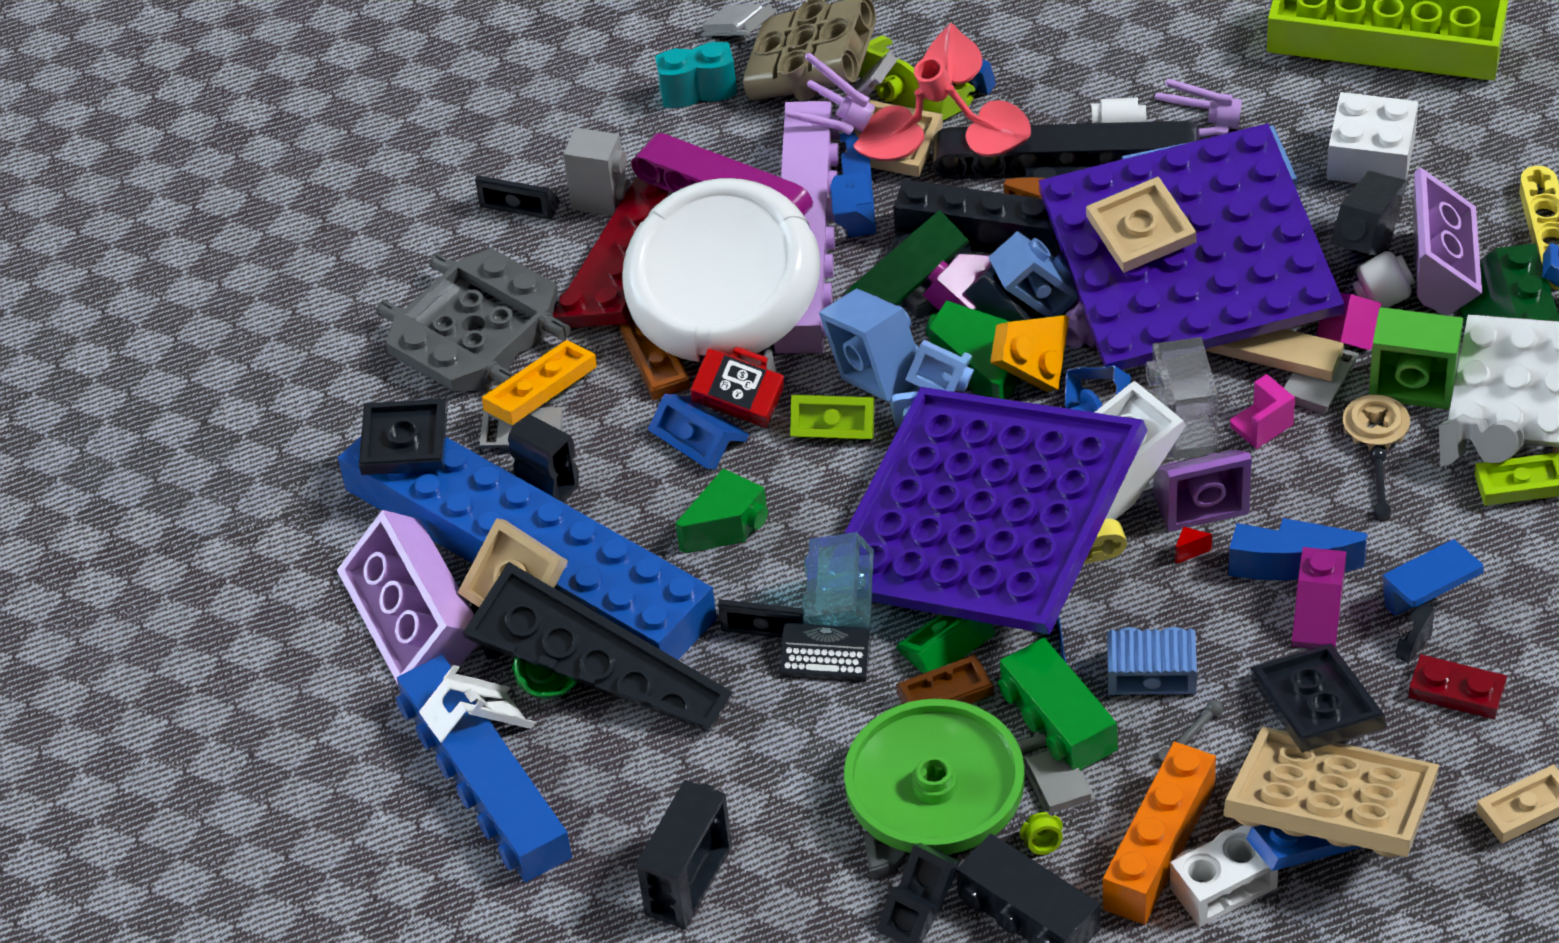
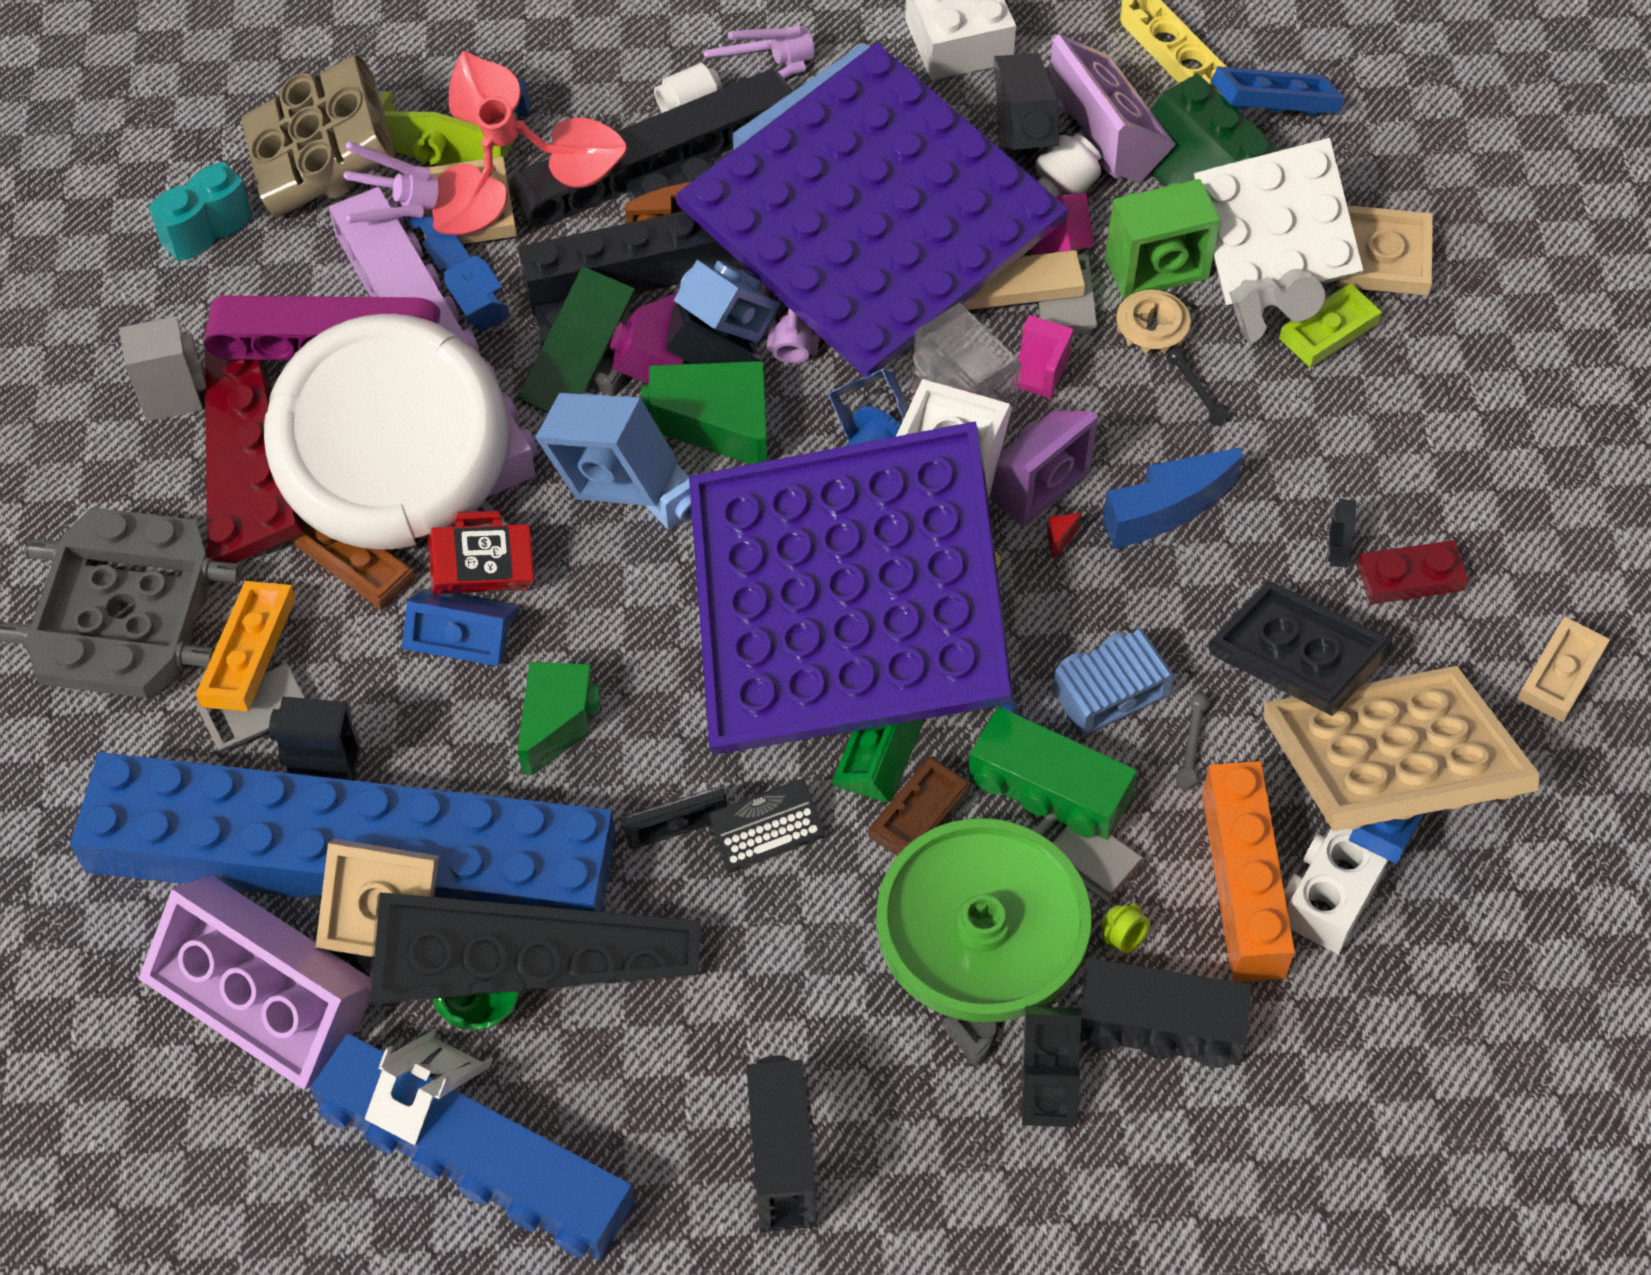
camera: 35 degrees left, 10 degrees up
(403, 436) = (141, 786): black tile -> none
(516, 197) = (77, 434): black slope -> none
(737, 19) = (208, 131): light grey piece -> none
(832, 416) = (602, 547): lime plate -> none
(838, 581) = (743, 741): clear light blue brick -> none
(875, 74) = (408, 142): light grey piece -> none
(940, 369) = (699, 448): light blue bracket -> none
(1032, 350) = (775, 385): light orange wing -> none
(1141, 224) = (823, 202): tan plate -> none
(1318, 598) = (1229, 537): magenta slope -> none
(1429, 576) = (1326, 468): blue panel -> none

